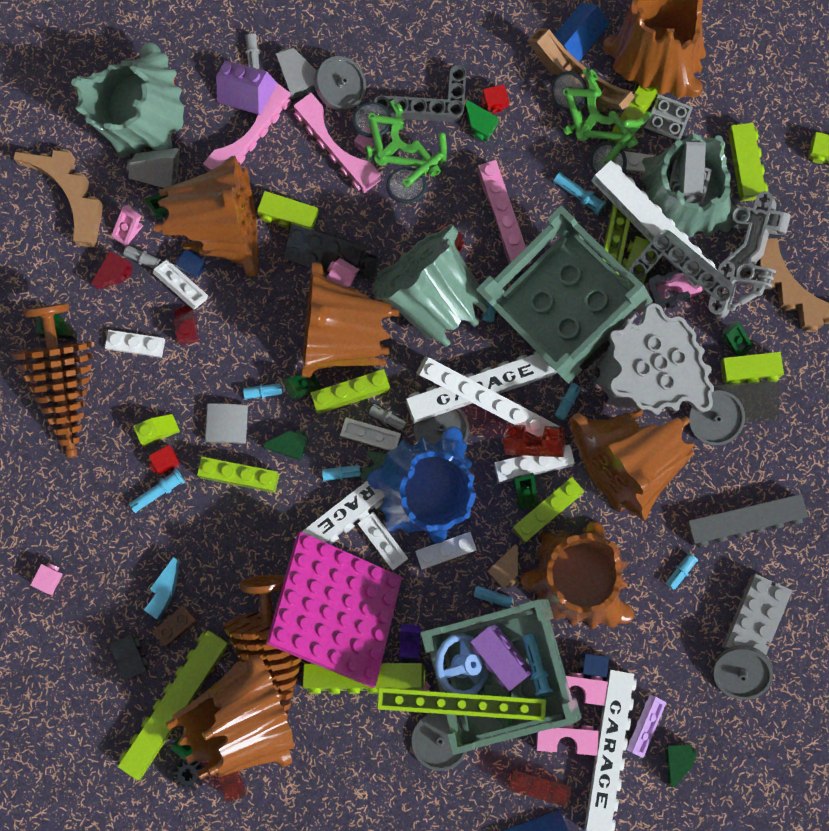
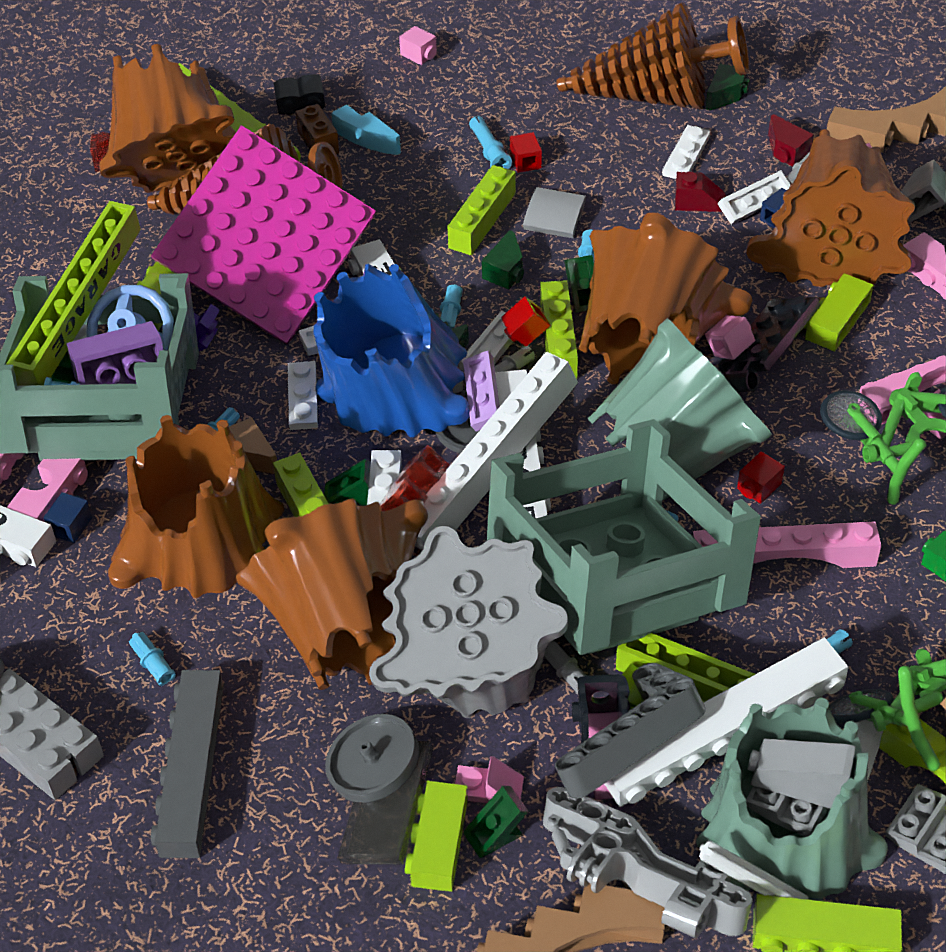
camera: 105 degrees right, 30 degrees down
(156, 429) = (567, 149): lime slope -> none
(360, 410) = (524, 322): none -> red brick
(433, 422) = (481, 388): none -> lavender plate
(712, 347) = (484, 782): none -> bright pink slope
(742, 198) = (746, 872): none -> white axle

